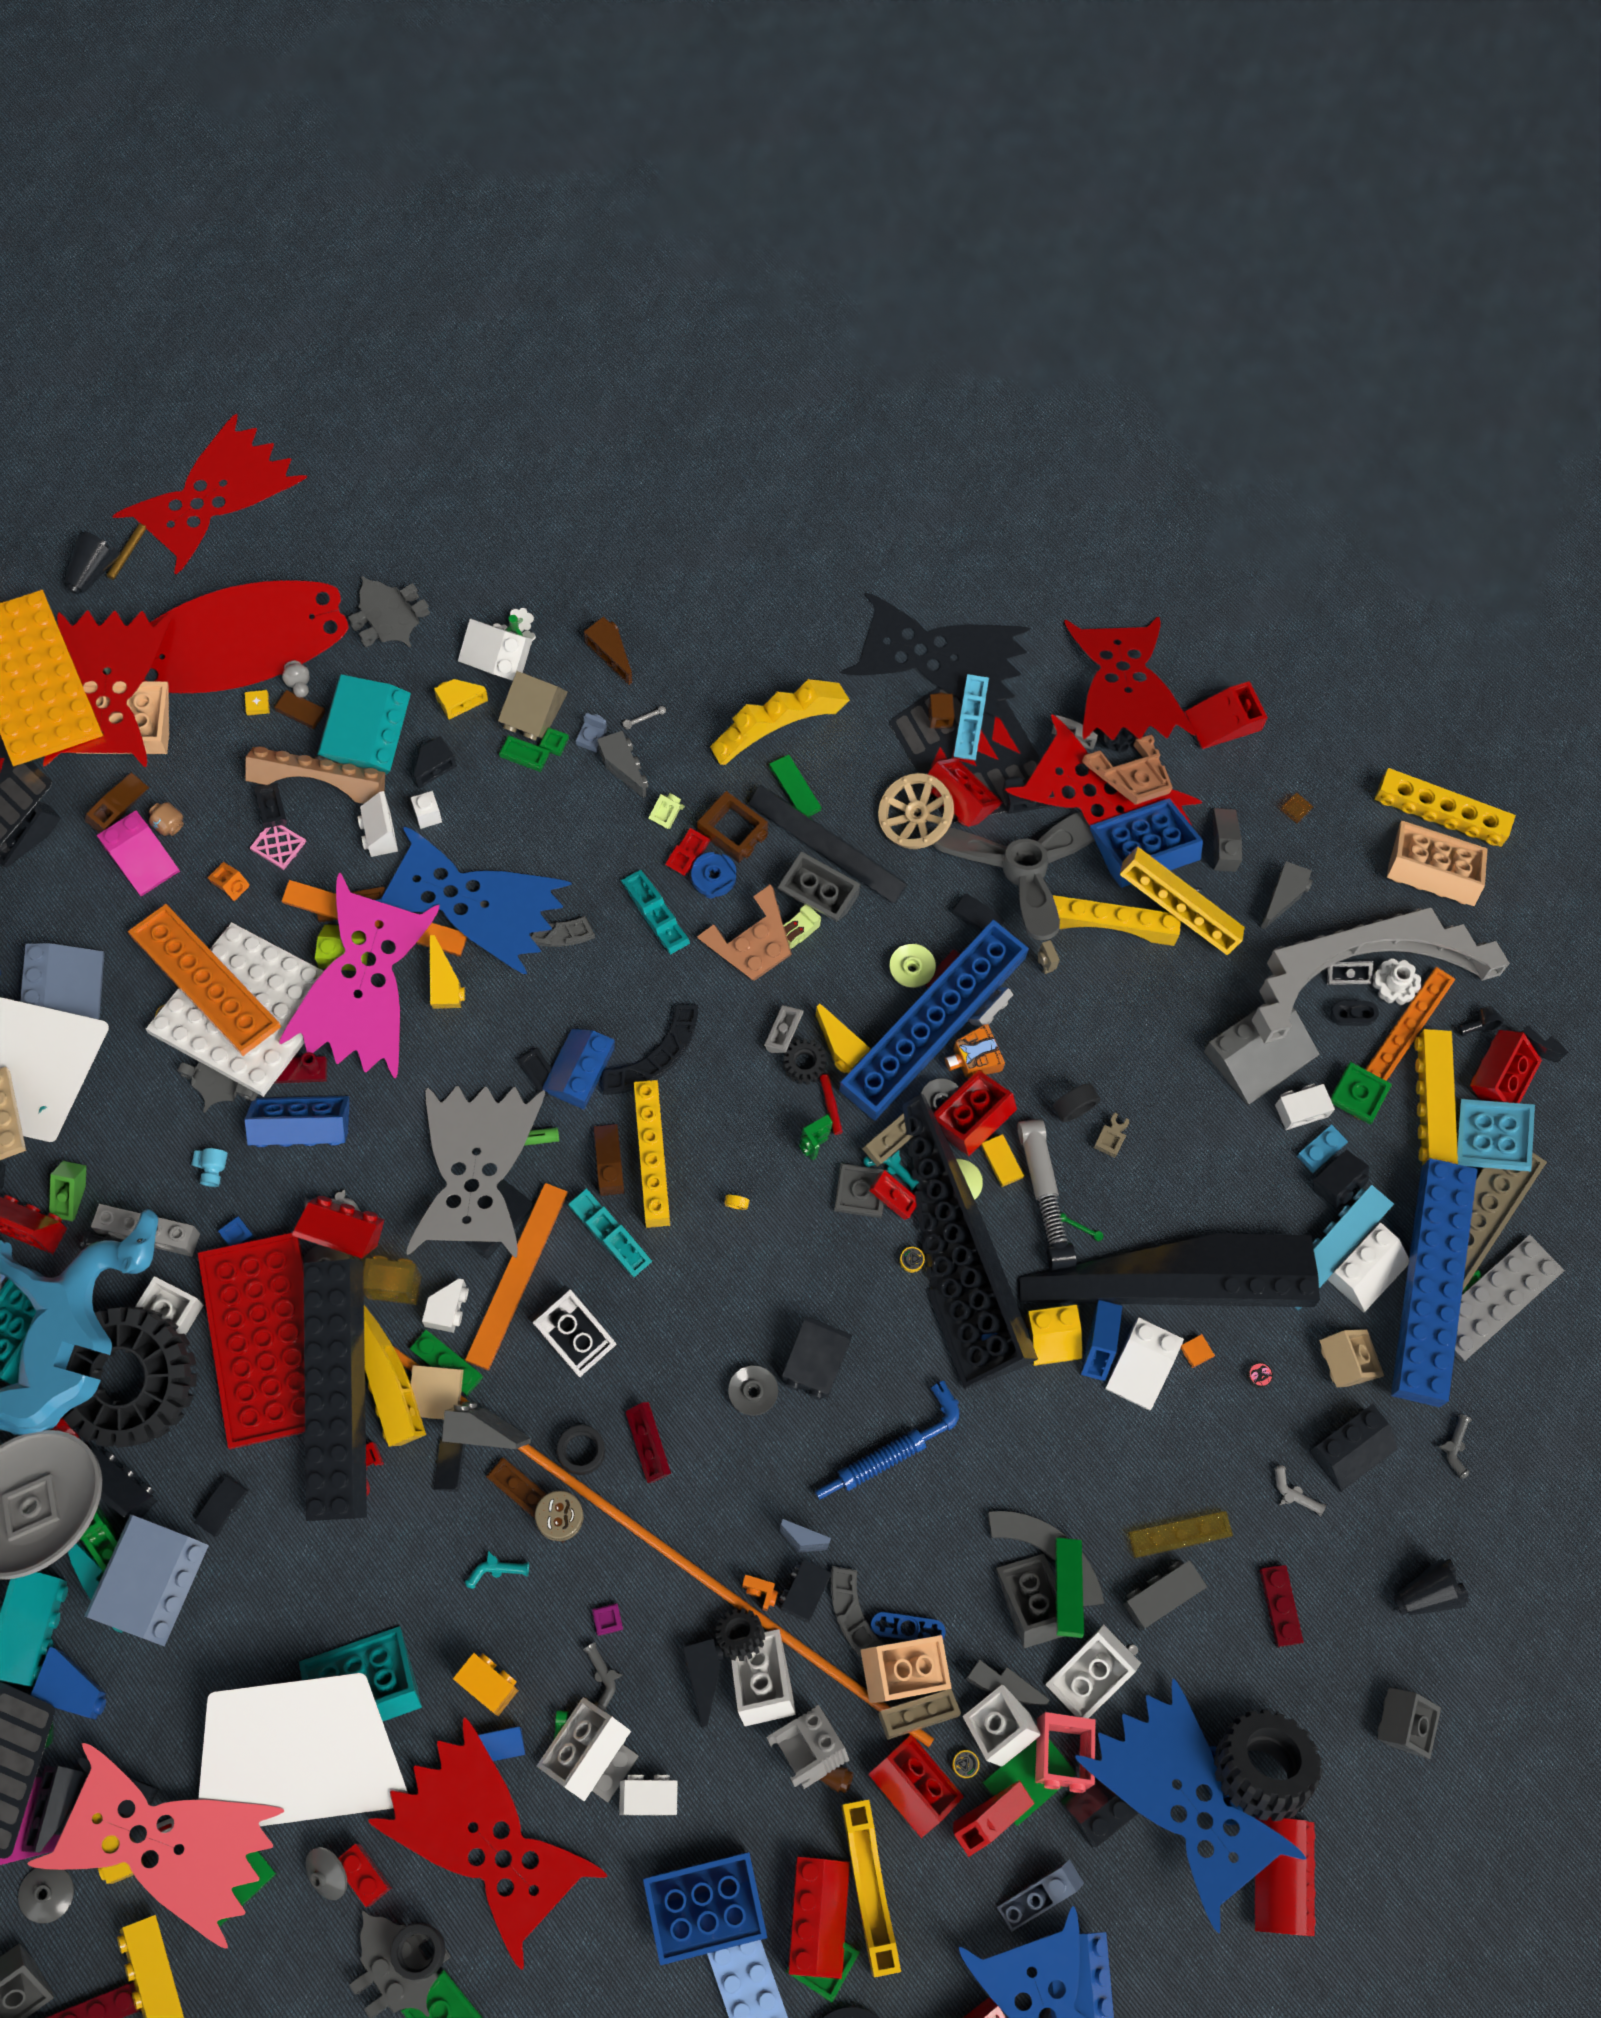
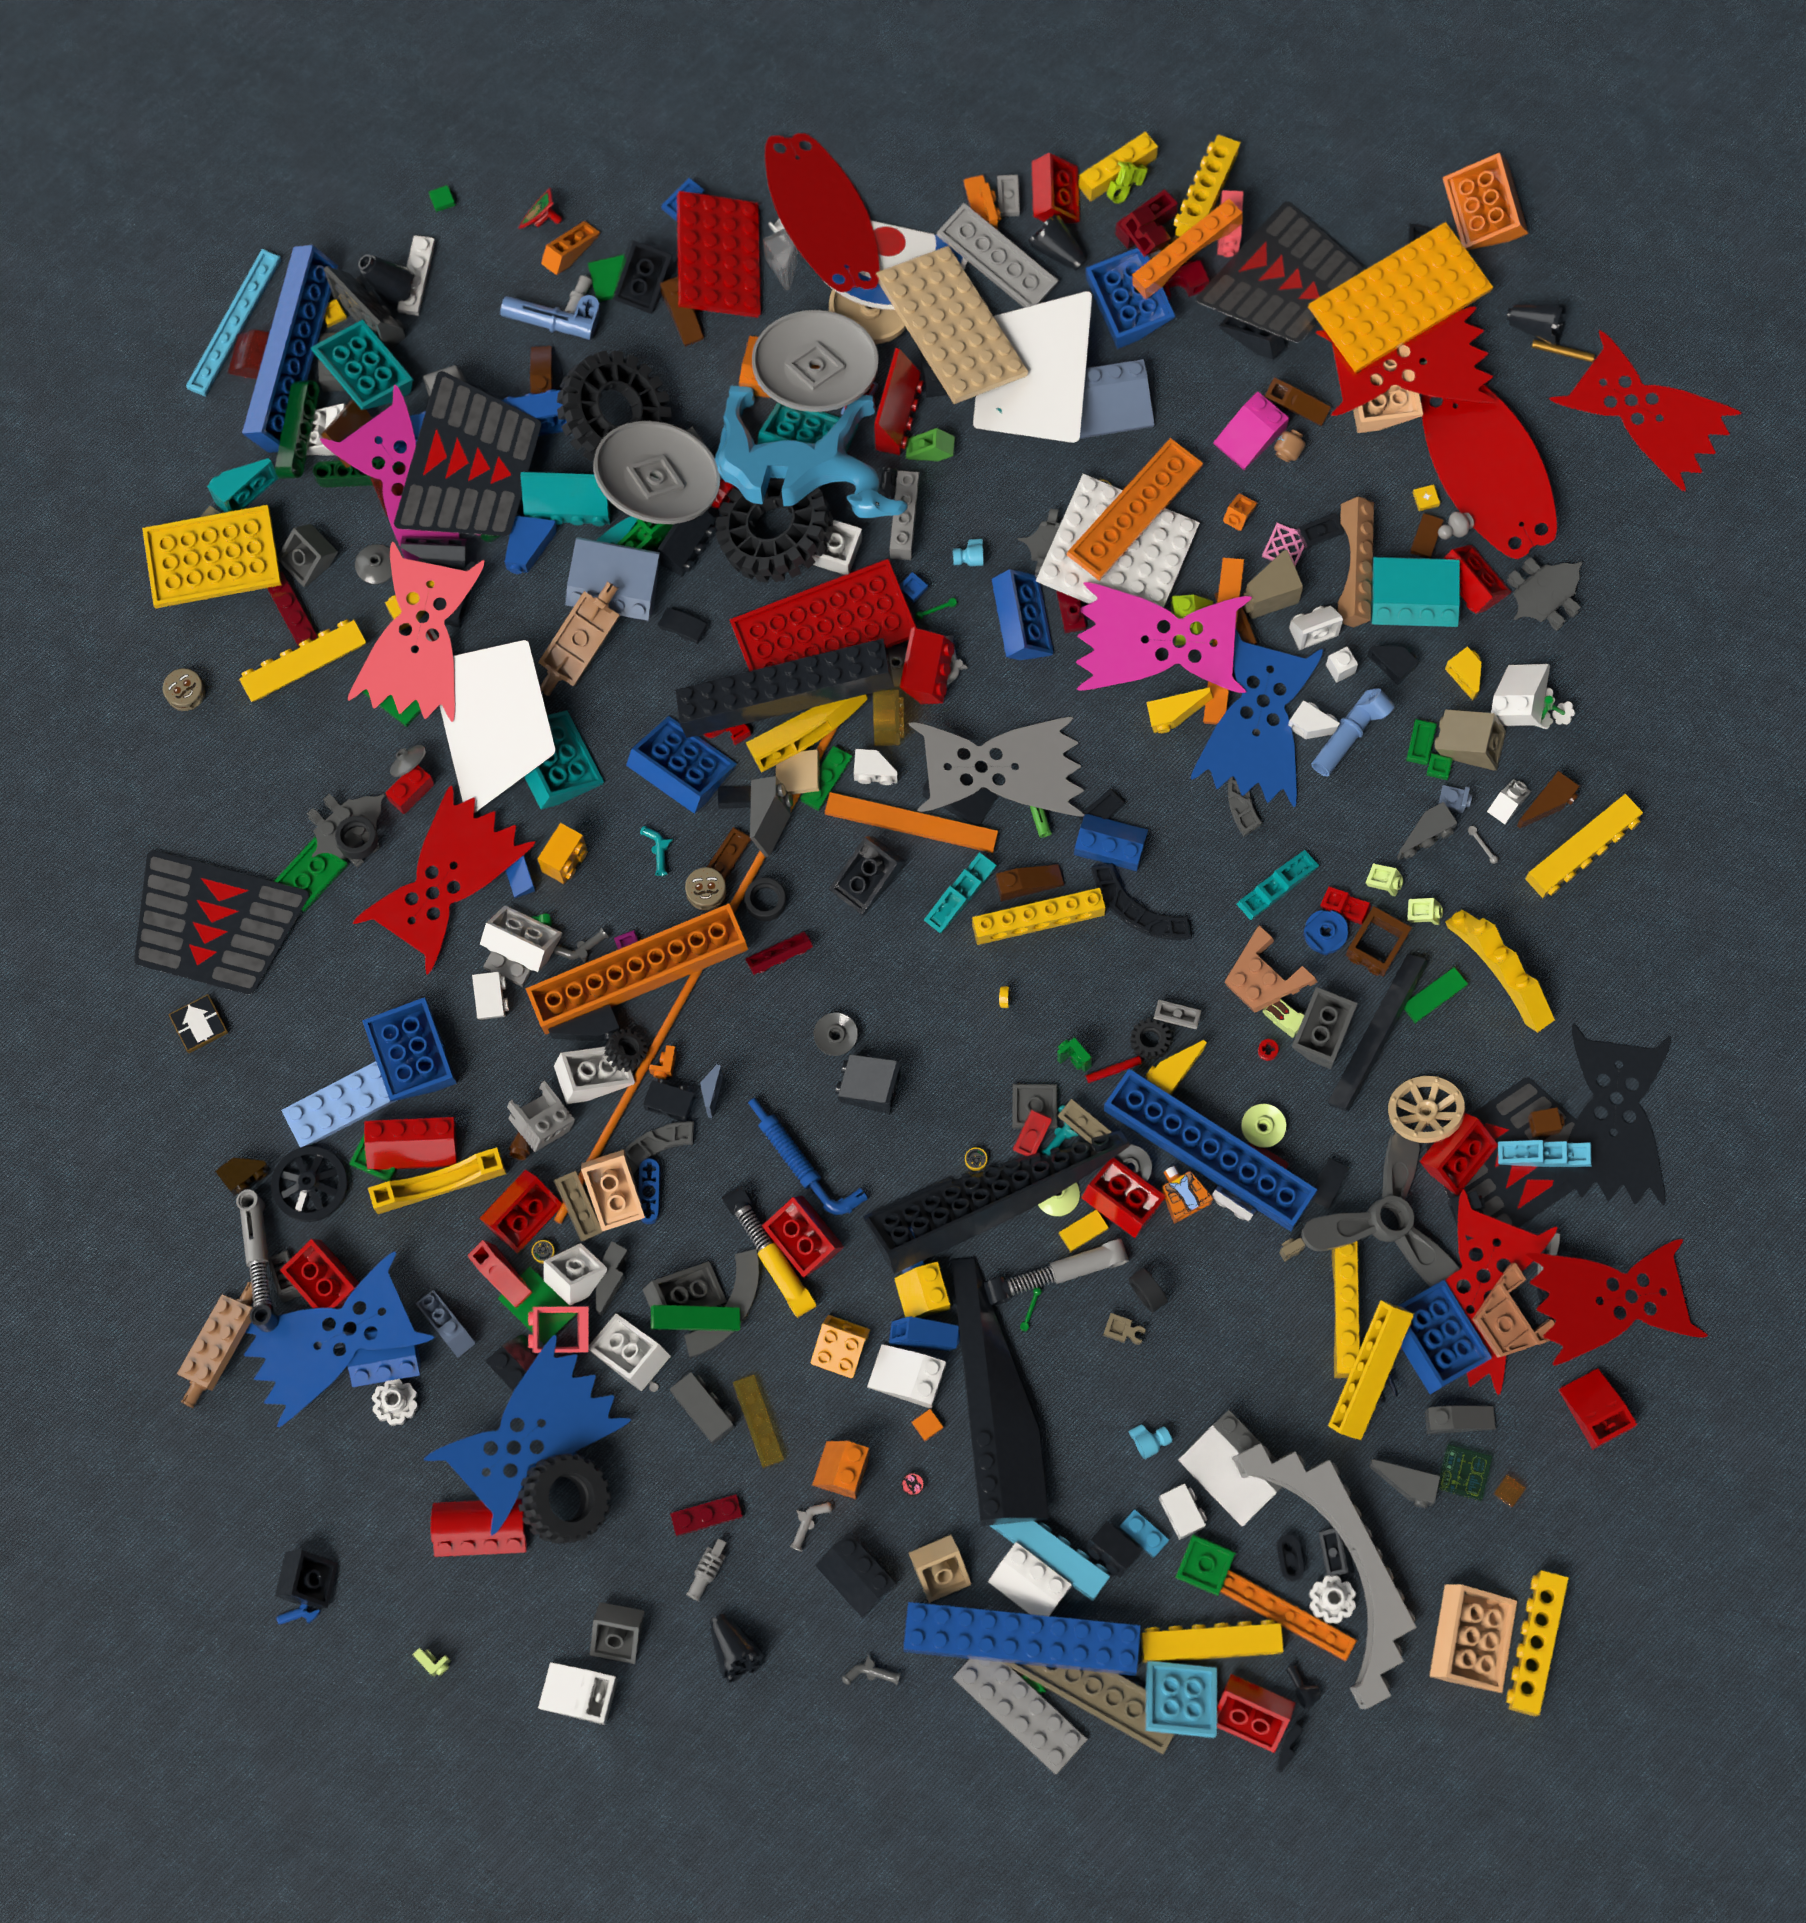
camera: 90 degrees right, 5 degrees up
(213, 1632) = (579, 638): none -> medium nougat plate
(263, 1195) = (952, 603): none -> green hinge
(324, 854) = (1274, 587): none -> dark tan slope
(370, 665) = (1477, 580): none -> red slope
(399, 1529) = (679, 765): none -> blue slope
(478, 791) = (1371, 706): none -> medium blue piece
(482, 850) = (1311, 722): none -> white slope
(605, 683) = (1509, 801): none -> white slope
(645, 1610) = (638, 967): none -> orange brick
(664, 627) = (1583, 846): none -> yellow brick
(706, 780) = (1424, 910): none -> yellowish green bracket
(824, 953) = (1273, 1044): none -> red bush
(981, 1456) = (802, 1235): none -> red slope
(996, 1496) = (770, 1254): none -> piece
(1105, 1431) = (839, 1346): none -> light orange bracket
(1132, 1969) = (395, 1402): none -> white plant
(1232, 1128) = (1149, 1443): none -> medium azure piece
(1245, 1445) = (842, 1468): none -> orange slope
(1276, 843) = (1464, 1472): none -> clear green tile
(1342, 1611) = (707, 1569): none -> light grey hinge
(1436, 1956) = (428, 1660): none -> yellowish green bracket
(1477, 1775) = (578, 1693): none -> white slope

